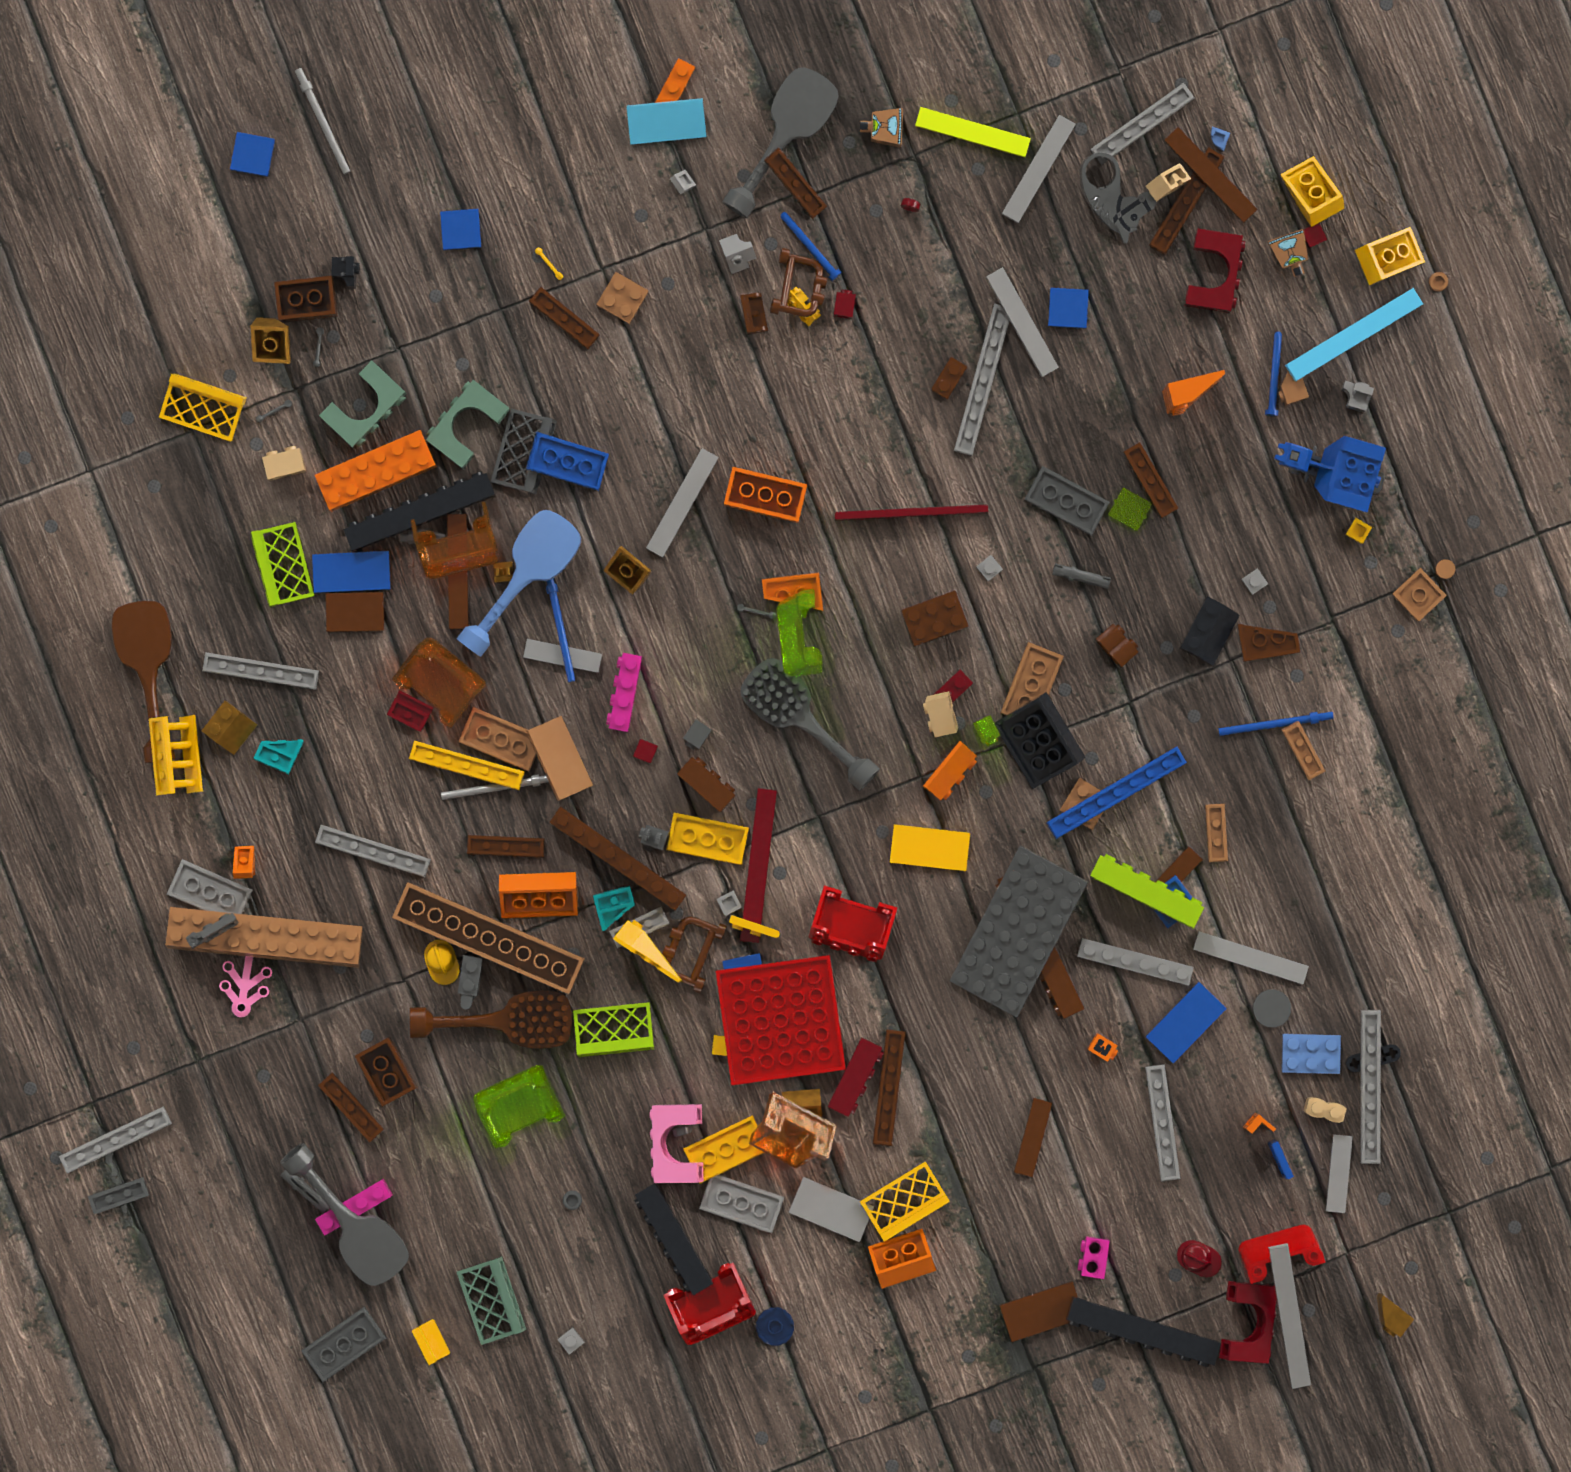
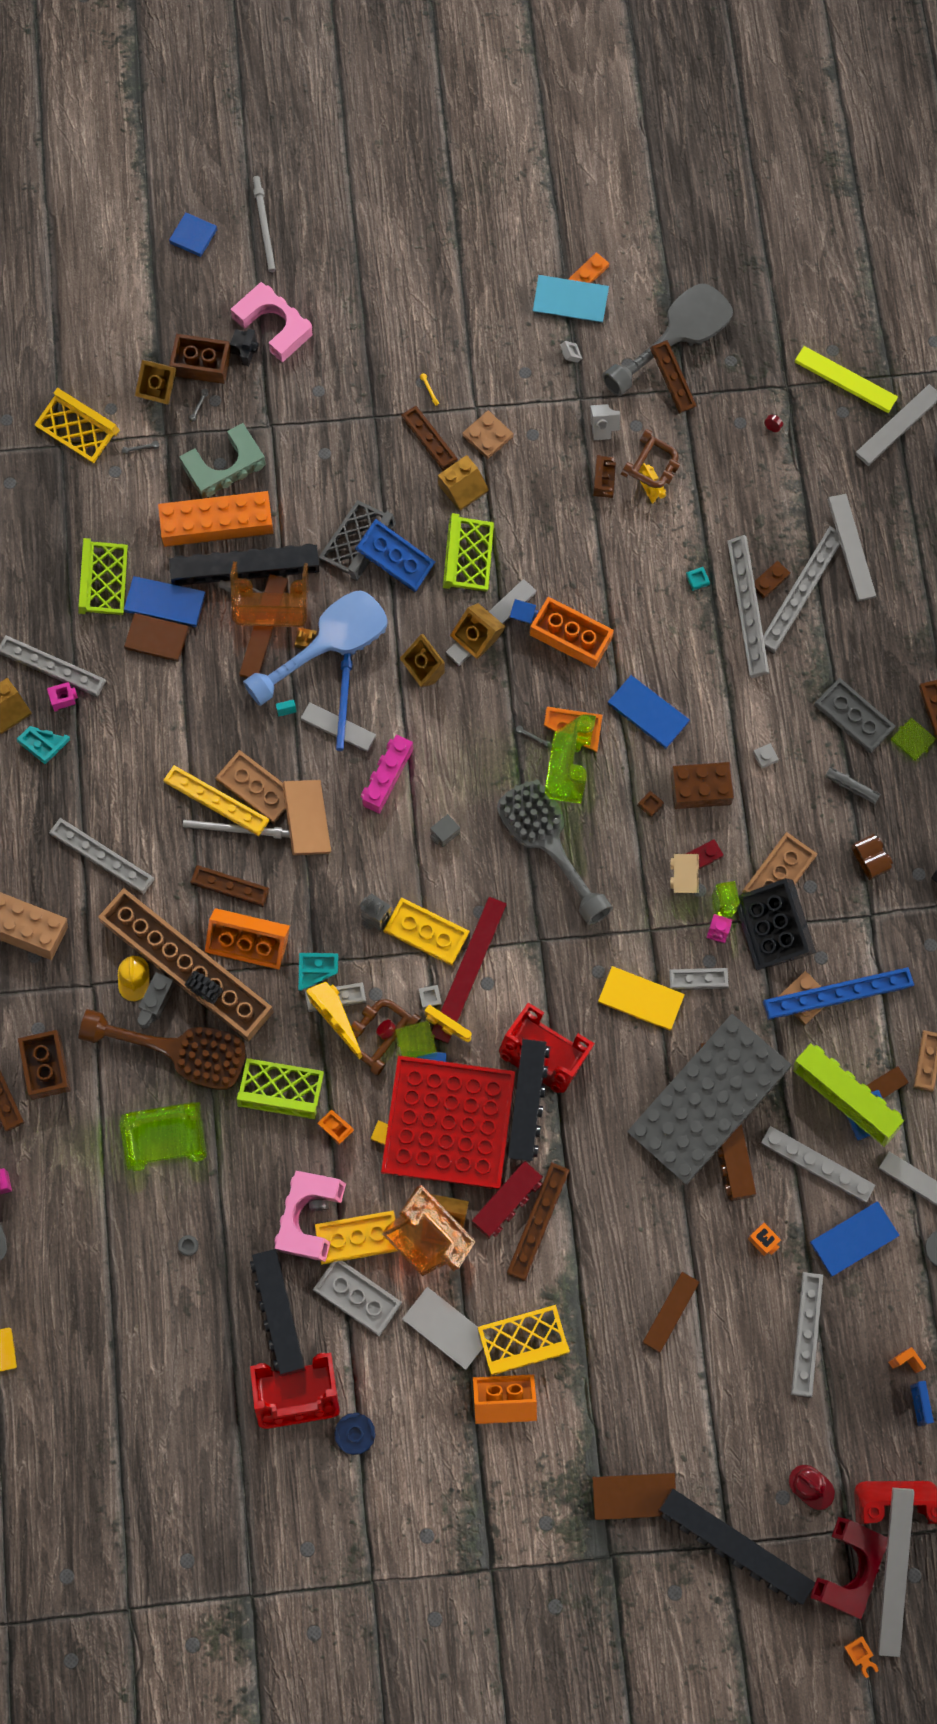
camera: 10 degrees right, 15 degrees down
(276, 704) = (59, 691): none -> dark pink brick
(284, 464) = (134, 491): tan brick -> none
(349, 212) = (263, 301): none -> bright pink arch
(410, 711) = (178, 737): dark red plate -> none
(440, 679) = (214, 715): clear orange windscreen -> none
(460, 229) = (358, 341): blue tile -> none
(473, 397) = (323, 481): sand green arch -> none
(506, 651) = (286, 708): none -> teal tile
(507, 1296) = (92, 1324): sand green fence -> none
(515, 962) = (203, 987): none -> black tyre
(570, 1340) = (142, 1389): light grey plate -> none
(613, 361) = (462, 483): none -> pearl gold slope
(618, 858) = (334, 925): reddish brown brick -> none
(624, 443) = (453, 549): none -> lime fence
(645, 751) = (390, 834): dark red tile -> none
(672, 519) = (477, 630): none -> pearl gold slope
(676, 1053) = (335, 1127): none -> orange slope
(696, 946) = (386, 1029): none -> dark red tile
(707, 783) = (441, 876): reddish brown brick -> none
(712, 487) = (523, 611): none -> blue brick
(728, 950) = (416, 1040): none -> clear neon green piece
(810, 246) = (687, 463): blue bar -> none
(844, 304) = (690, 491): dark red brick -> none
(849, 979) = (528, 1100): none -> black brick
(862, 554) = (648, 711): none -> blue tile
(876, 397) = (697, 578): none -> teal tile
(885, 127) = (767, 353): medium nougat torso -> none
(889, 649) = (650, 804): none -> reddish brown tile
(911, 512) = (705, 685): dark red tile -> none
(933, 414) = (748, 606): none -> light grey tile
(950, 771) = (680, 928): orange slope -> none
(979, 813) = (698, 978): none -> light grey tile
(987, 759) = (719, 928): none -> dark pink brick
(1068, 308) = (897, 548): blue tile -> none
(1099, 1257) = (708, 1456): dark pink brick -> none
(1275, 1392) = (859, 1654): none -> orange plate

